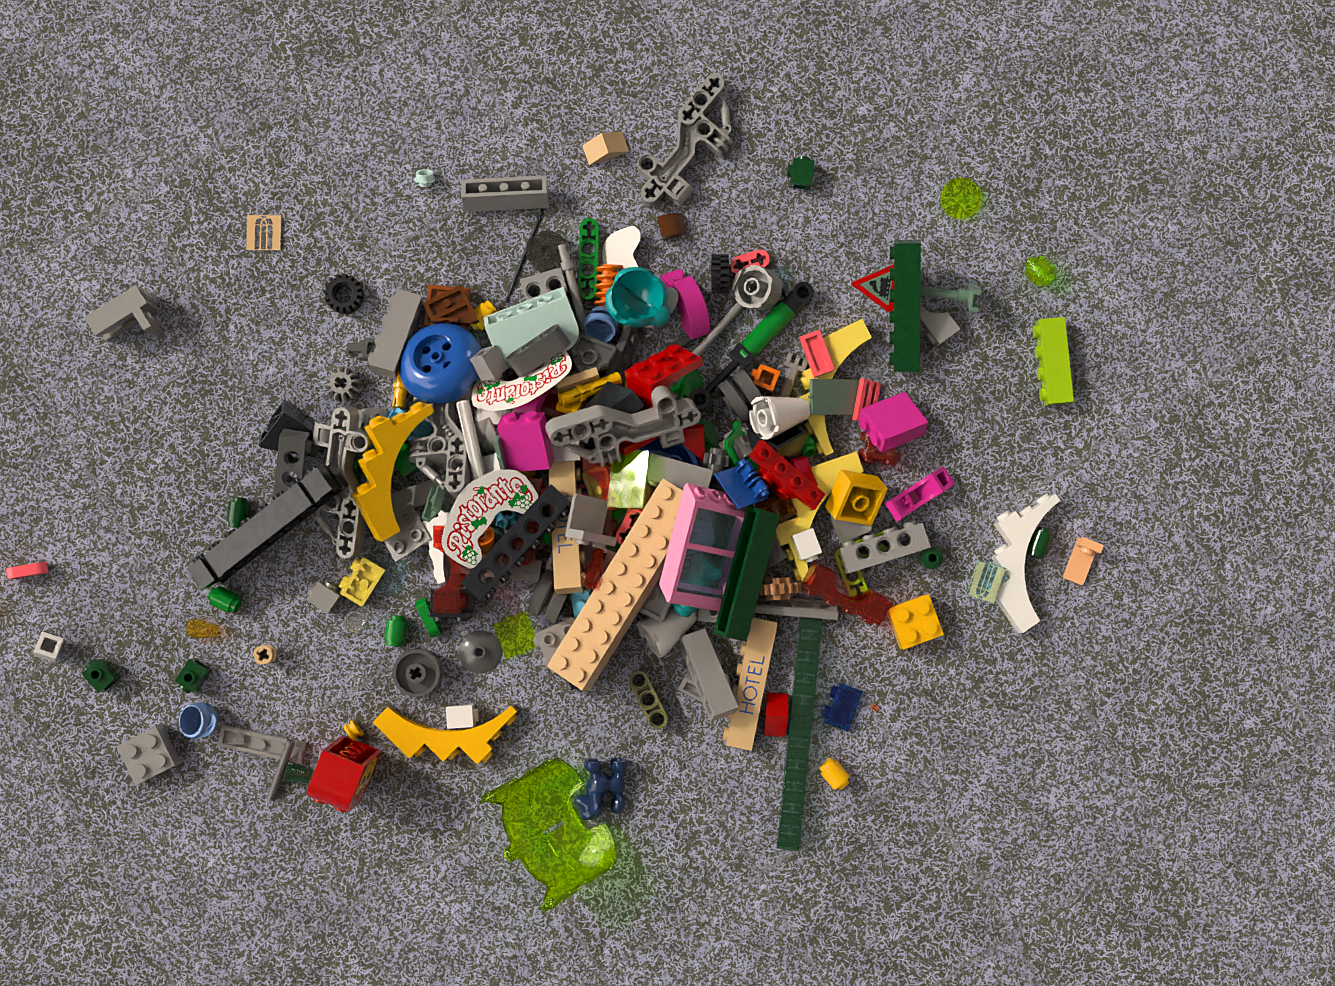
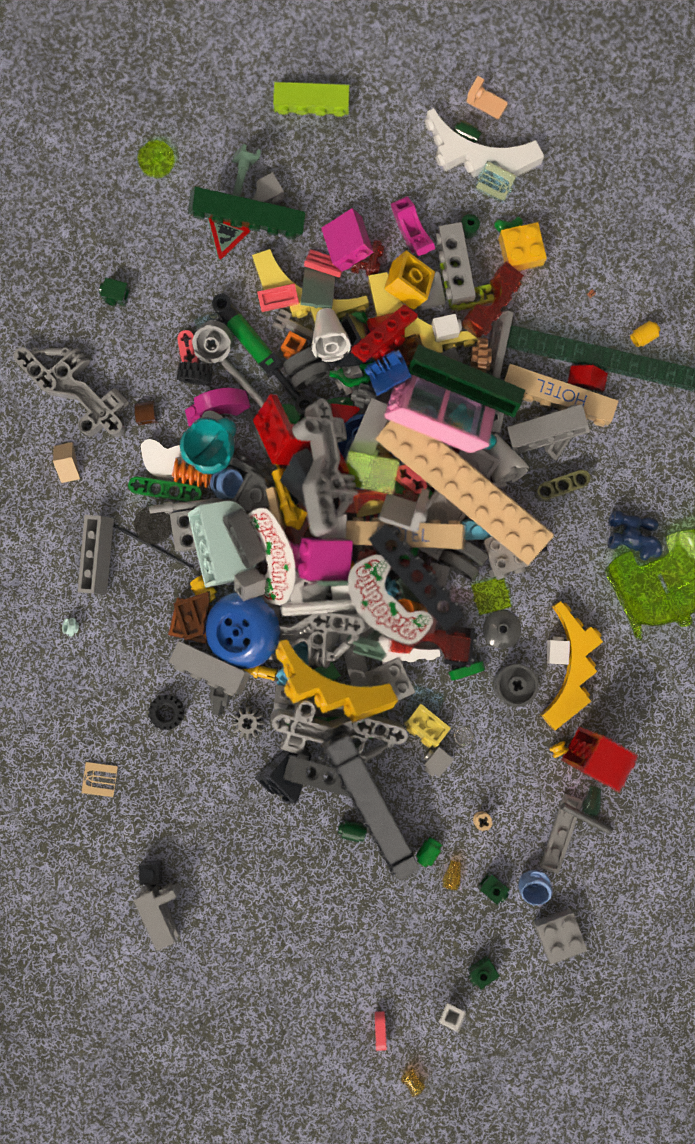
camera: 85 degrees left, 0 degrees up
(169, 300) = (150, 872): none -> black brick
(396, 631) = (475, 701): green brick -> none
(594, 568) = (446, 512): clear red pin -> none
(842, 706) = (587, 320): clear blue bracket -> none
(937, 599) = (501, 224): none -> green arm
(1040, 270) = (230, 99): clear neon green head -> none

